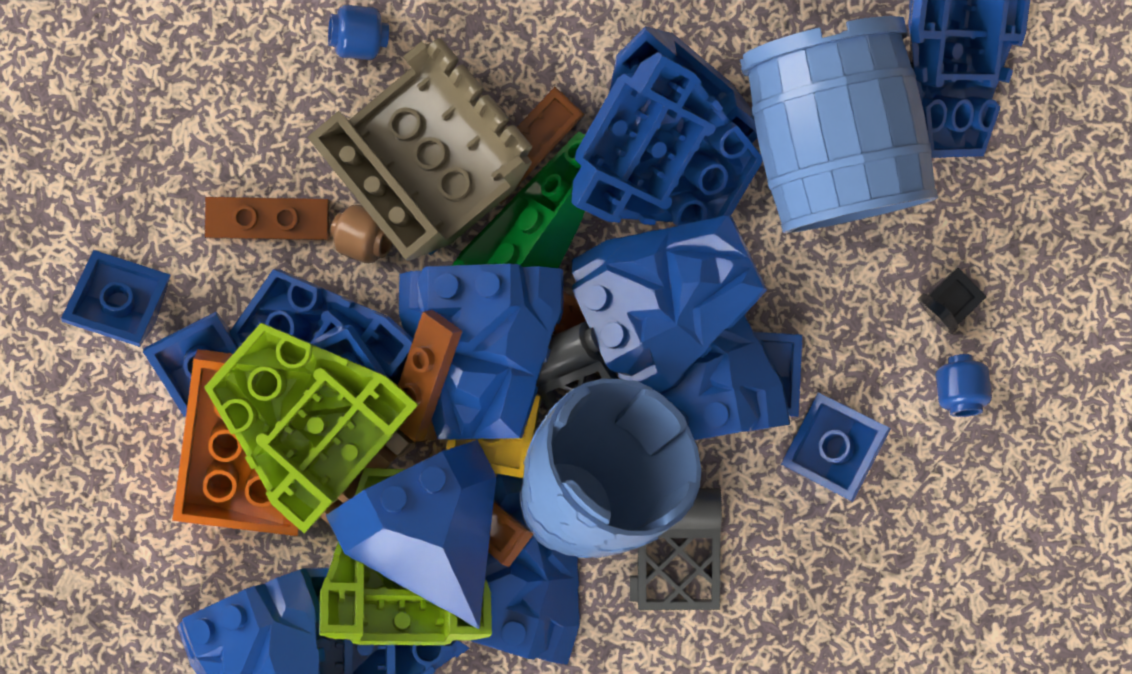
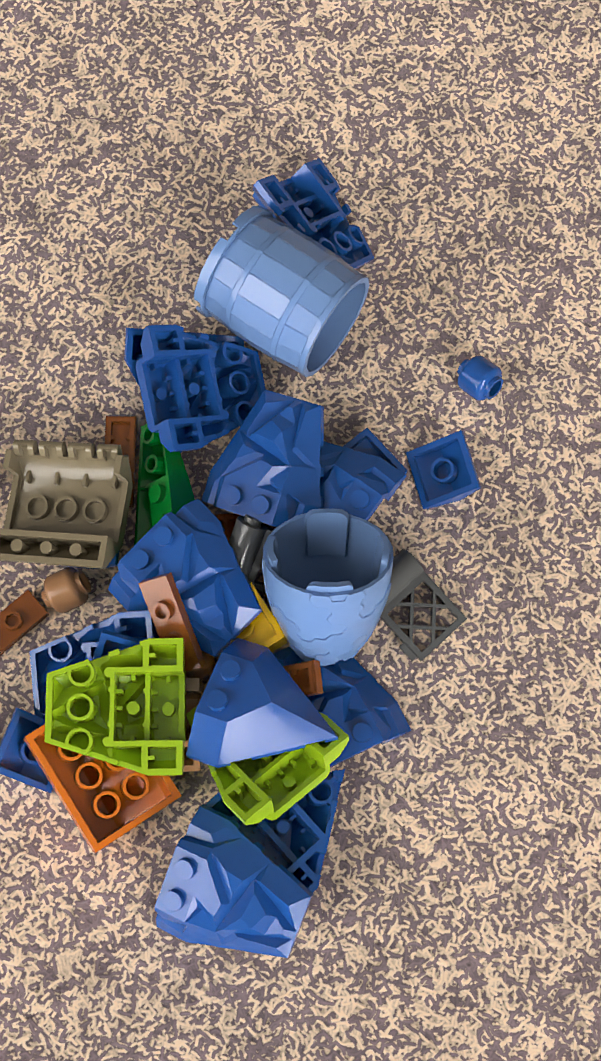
camera: 40 degrees left, 15 degrees down
(952, 300) = (430, 343): black tile -> none

